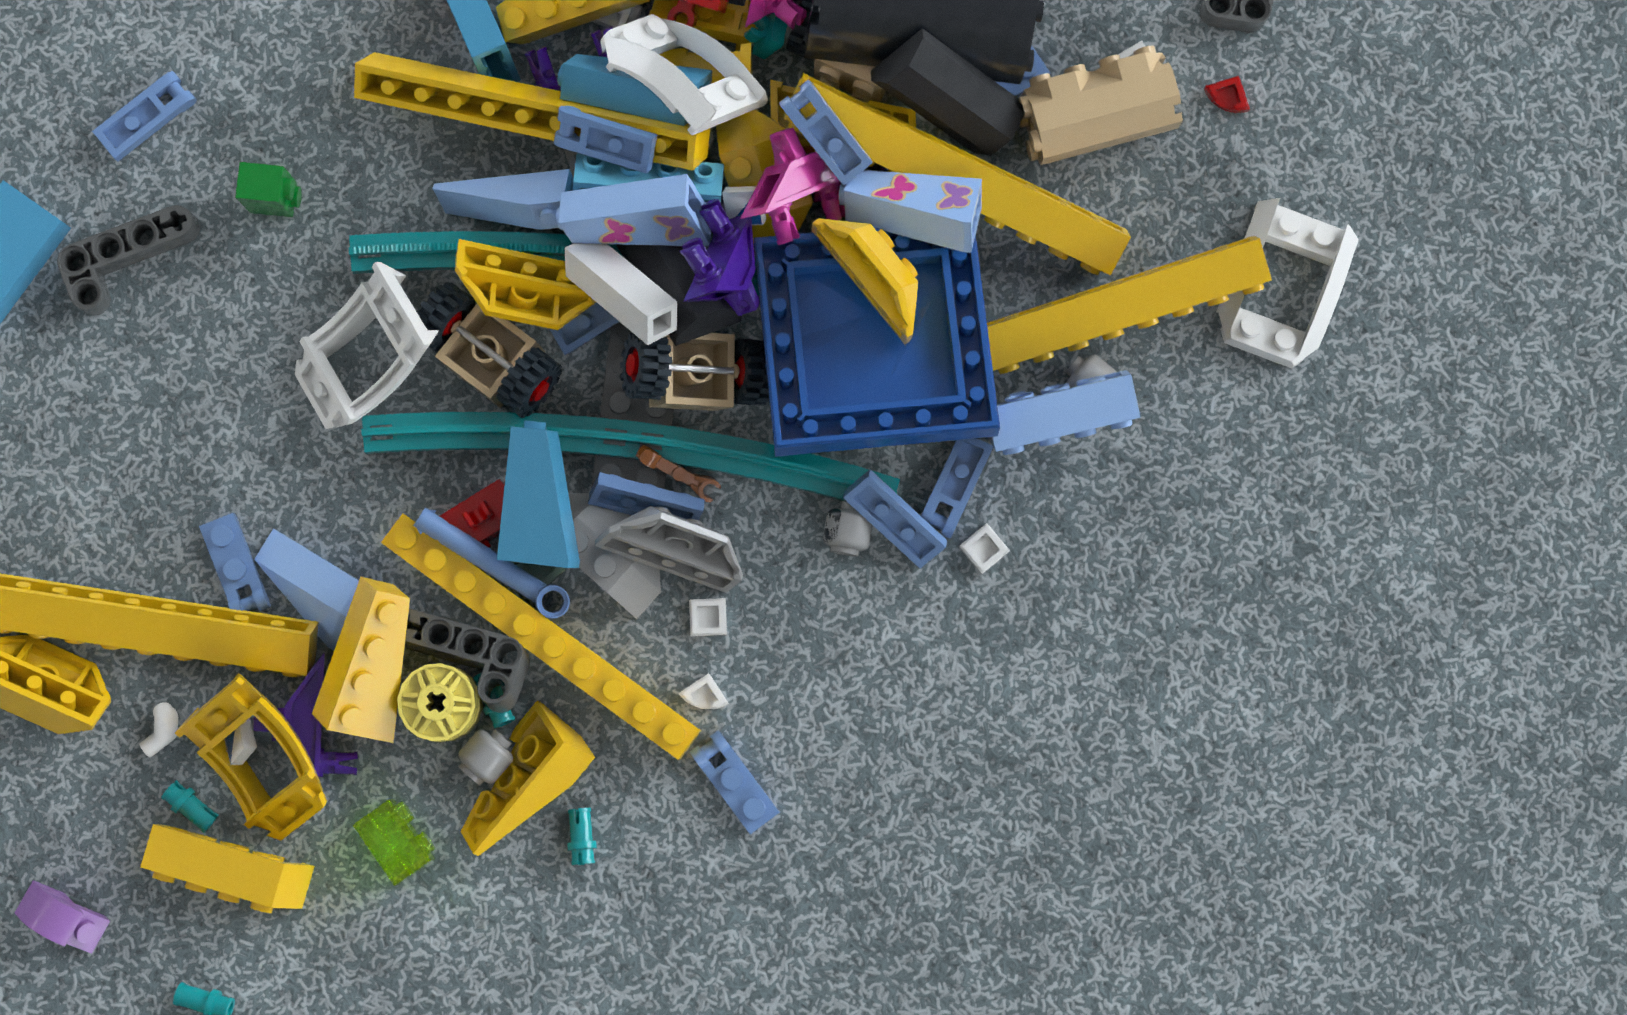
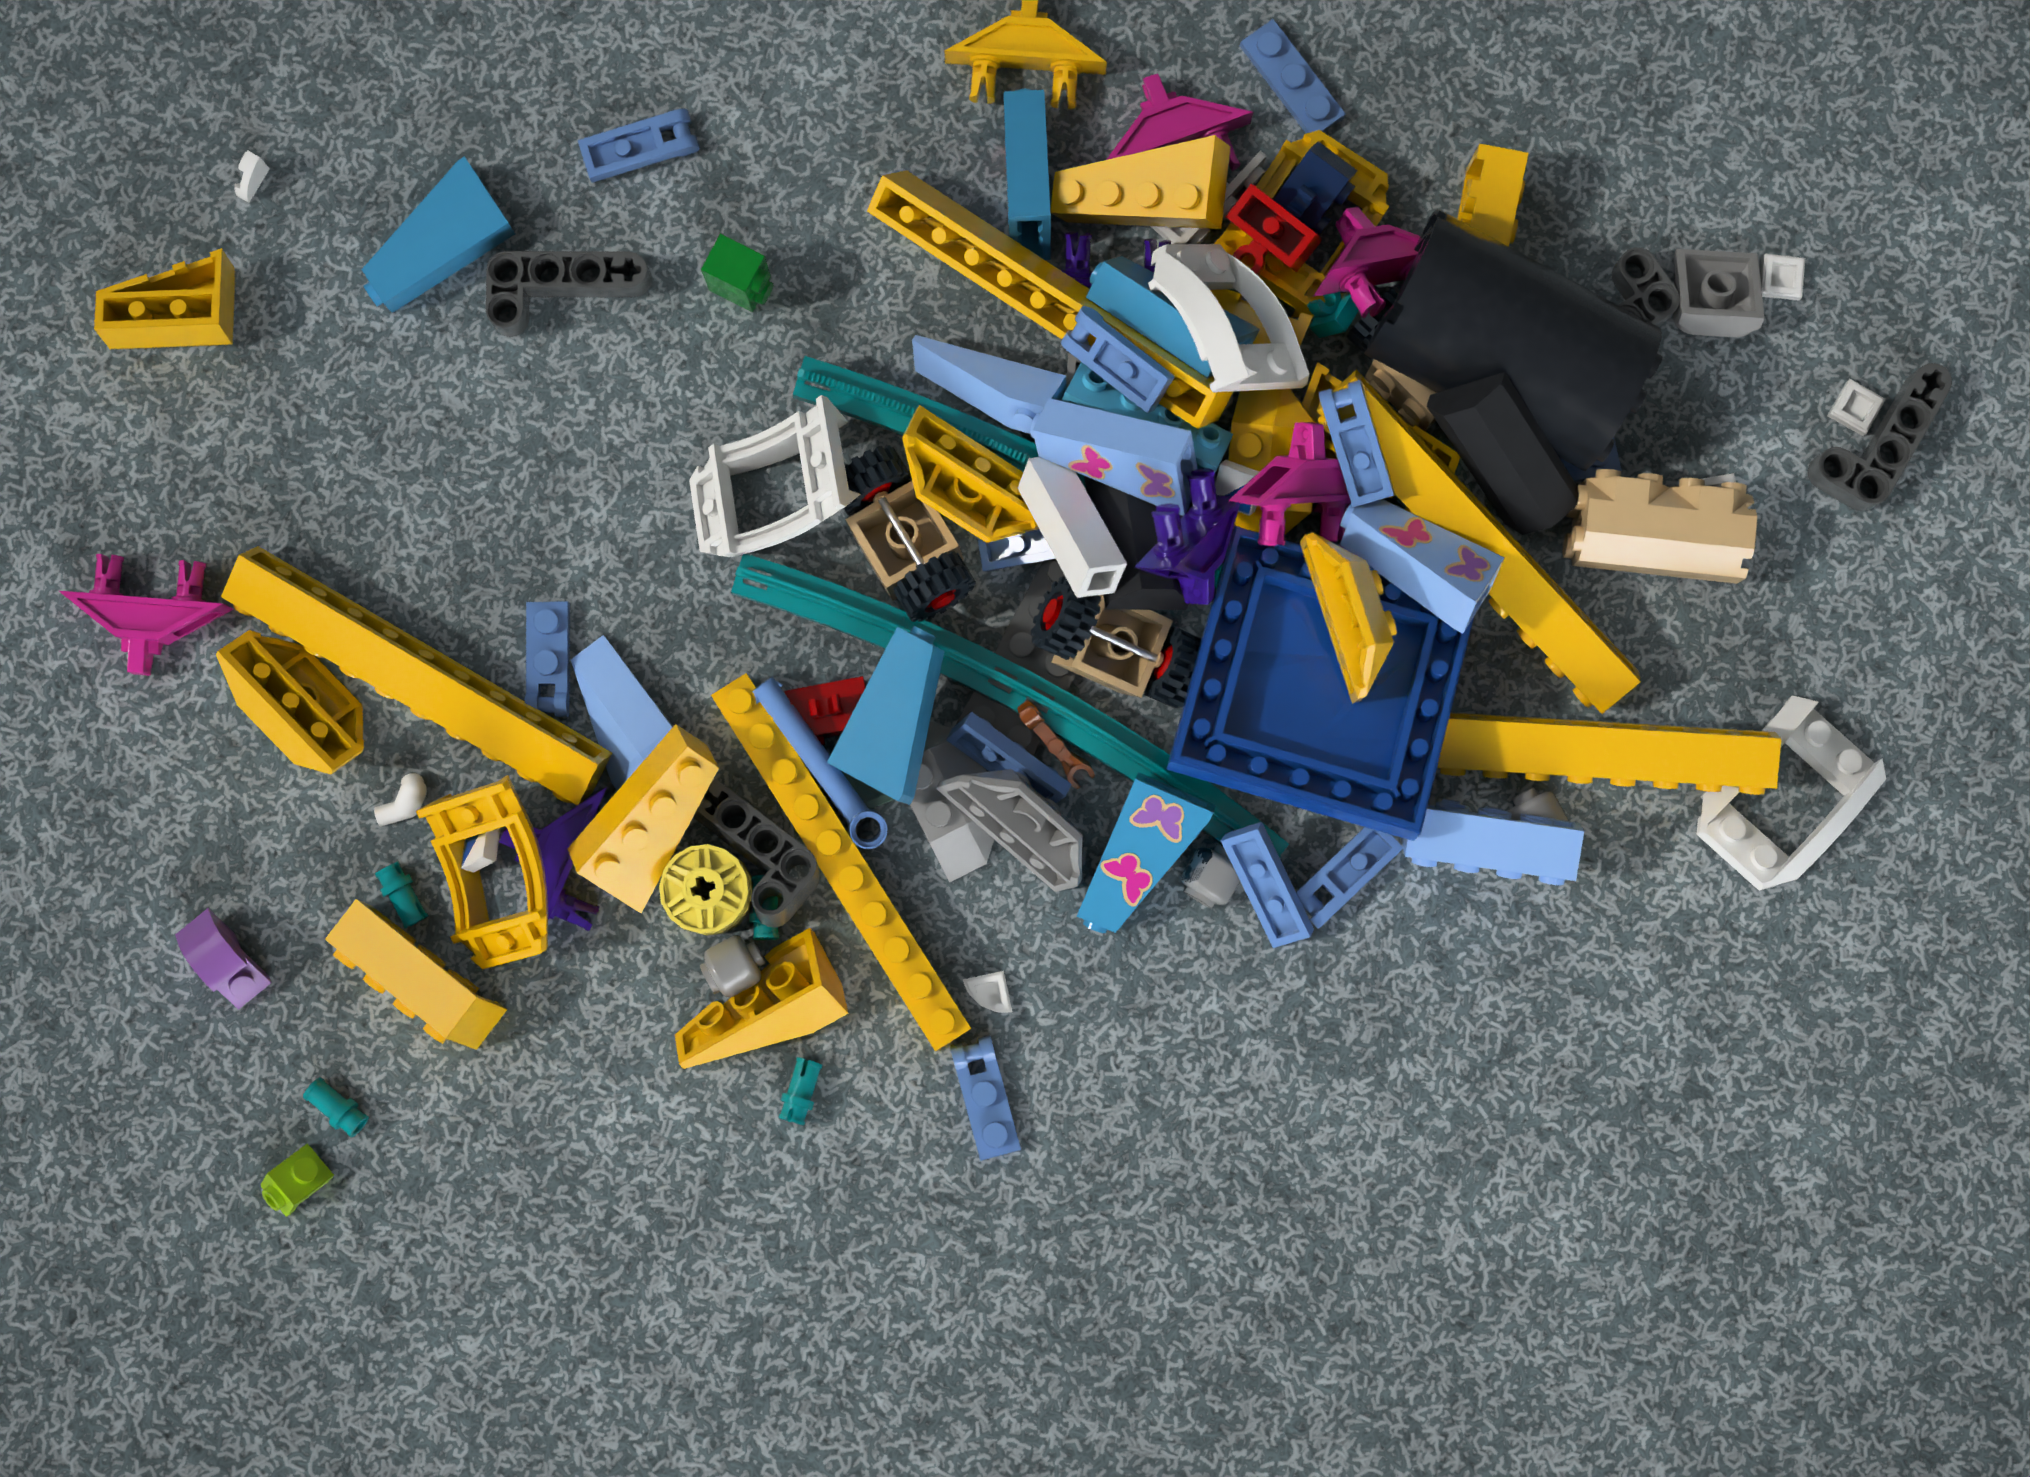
camera: 25 degrees right, 0 degrees up
(395, 840) = (602, 1017): clear neon green brick -> none
(708, 617) = (1026, 910): white tile -> none
(781, 527) = (1144, 844): none -> dark azure slope
(984, 548) = (1350, 953): white tile -> none
(1228, 95) = (1805, 568): red tile -> none

